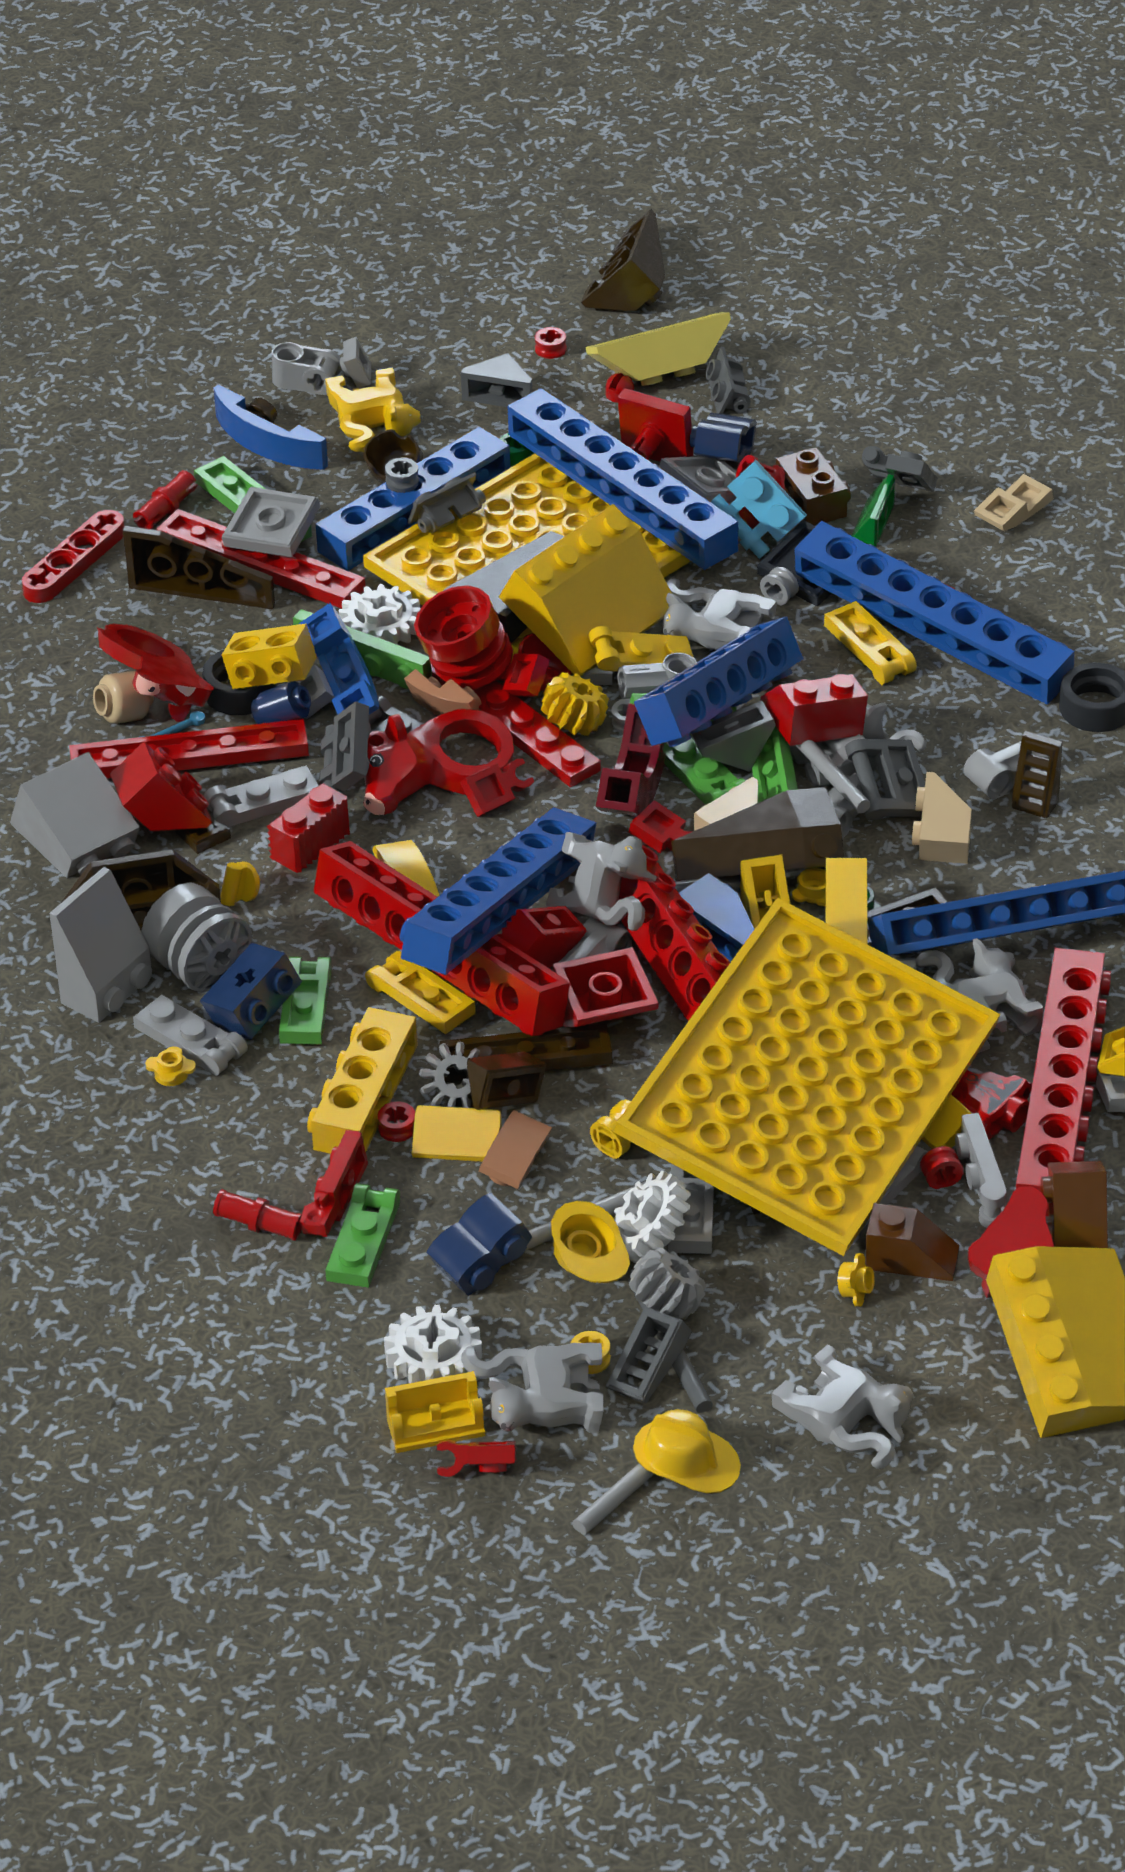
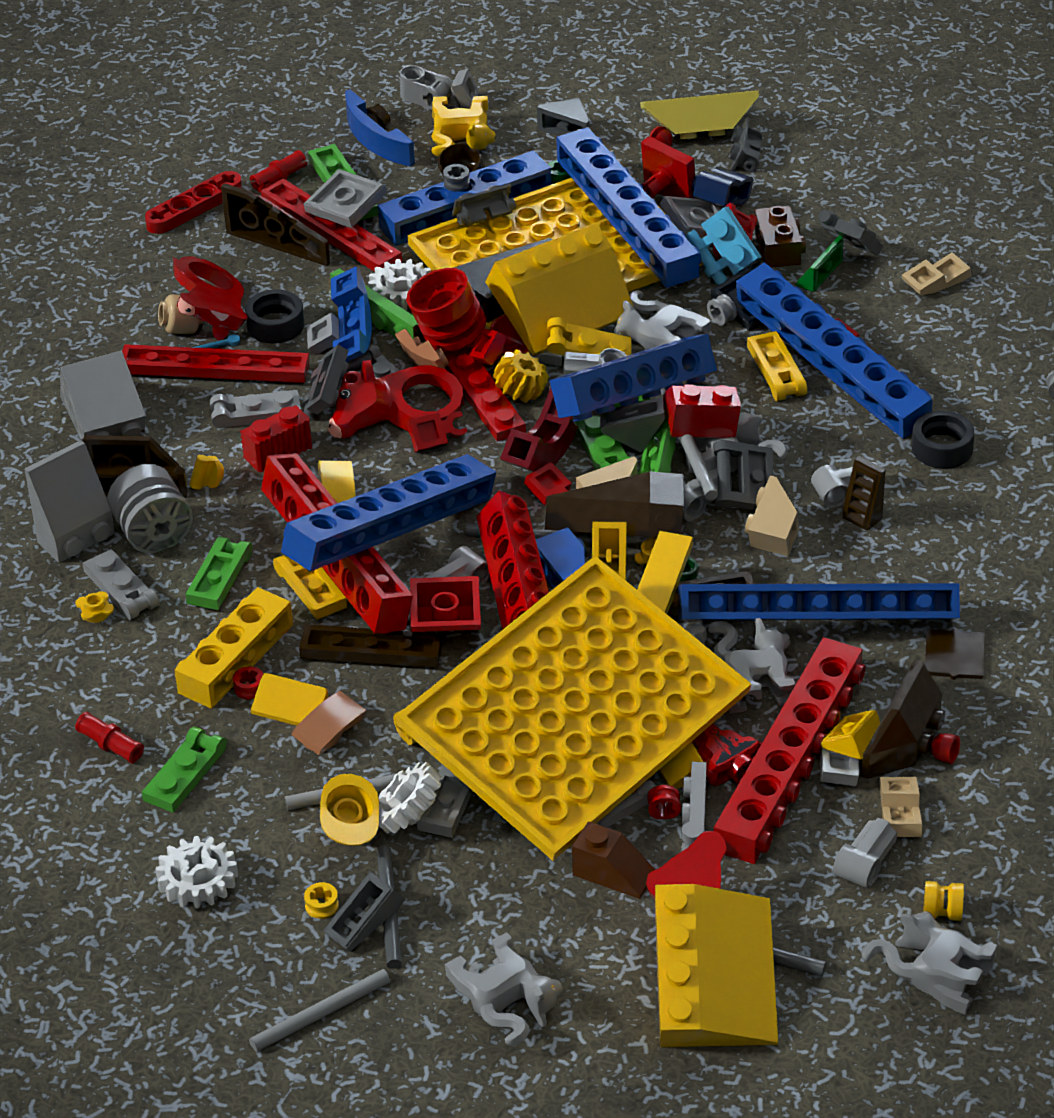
camera: 15 degrees right, 0 degrees up
(158, 792) = (172, 392): red slope -> none
(204, 838) = (198, 431): dark brown tile -> none
(251, 990) = (175, 558): dark blue brick -> none
(269, 656) = (293, 299): yellow brick -> none
(281, 703) = (296, 338): dark blue brick -> none
(336, 1187) = (171, 731): red hinge -> none
(434, 1411) = (175, 925): yellow hinge -> none
(445, 1090) = (308, 644): light grey gear -> none
(479, 1244) = (265, 794): dark blue brick -> none
(489, 1455) = (204, 970): red plate -> none
(505, 1079) = (339, 664): dark brown slope -> none
(544, 933) = (414, 553): red brick -> none
(550, 342) = (621, 96): red bush -> none
(554, 1382) = (274, 916): light grey animal -> none
(599, 880) = (474, 518): light grey animal -> none
(633, 271) = (704, 52): dark brown wedge -> none
(667, 1283) = (399, 857): light grey gear -> none
(686, 1452) = (362, 1000): yellow piece -> none
(855, 1279) = (556, 882): yellow plate -> none
(1077, 1204) = (754, 856): reddish brown brick -> none

